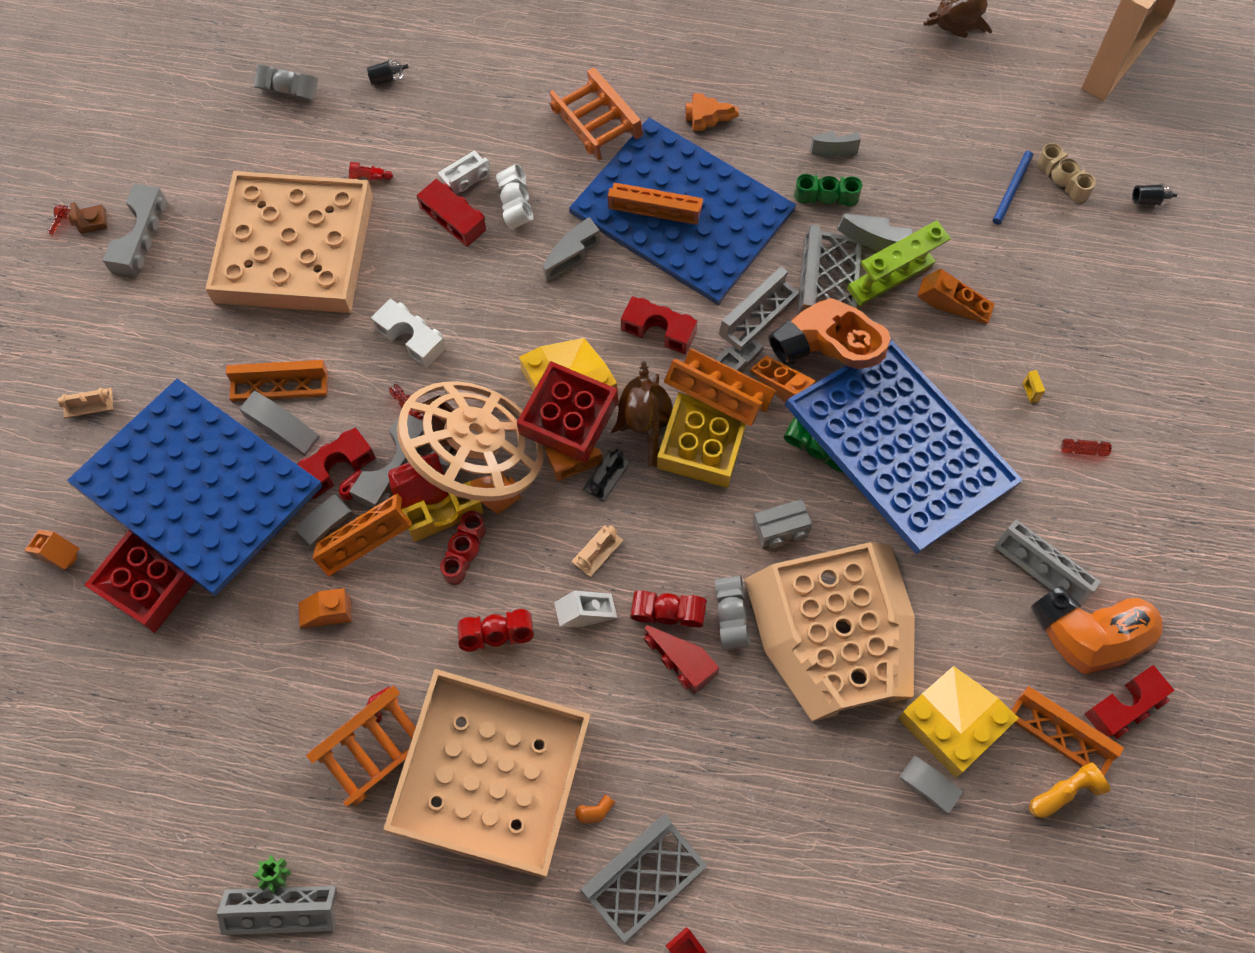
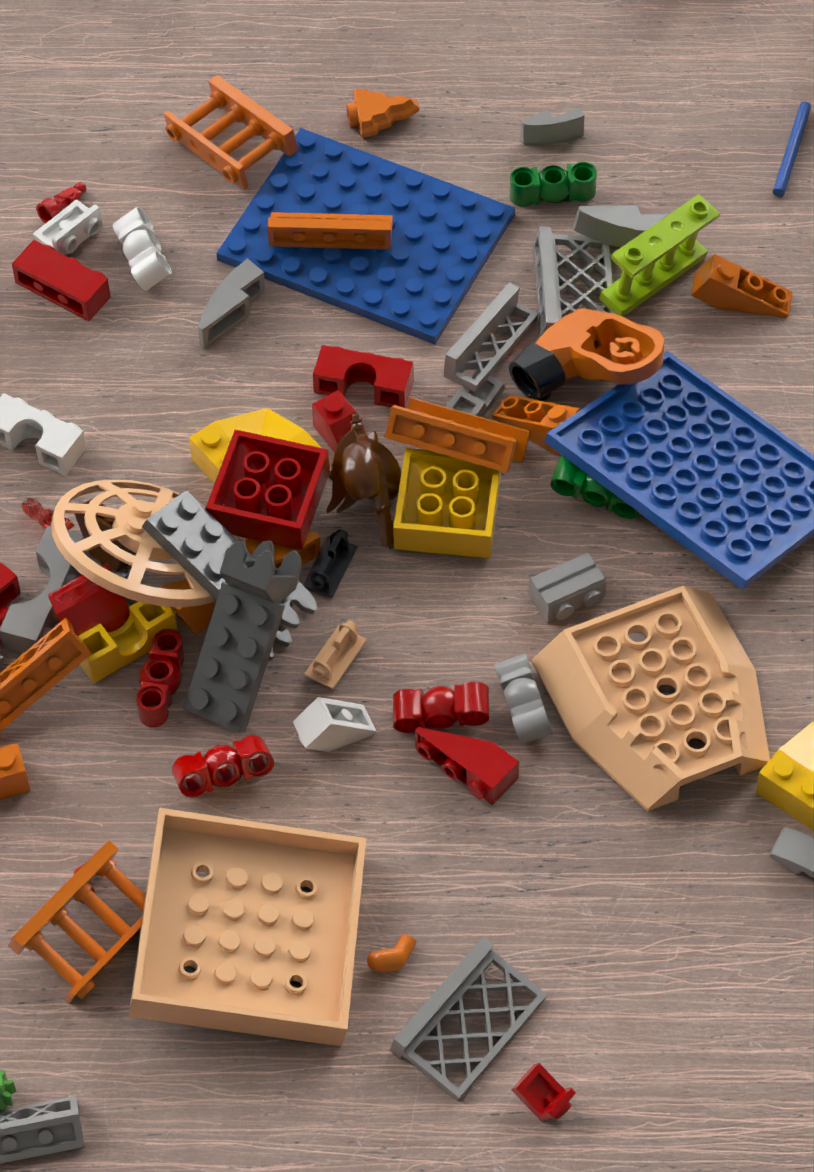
camera: 10 degrees left, 10 degrees down
(454, 154) = (51, 207): none -> red piece
(525, 475) = (200, 547): none -> hinge
(526, 529) = (241, 634): none -> dark grey hinge
(629, 356) = (332, 418): none -> red slope

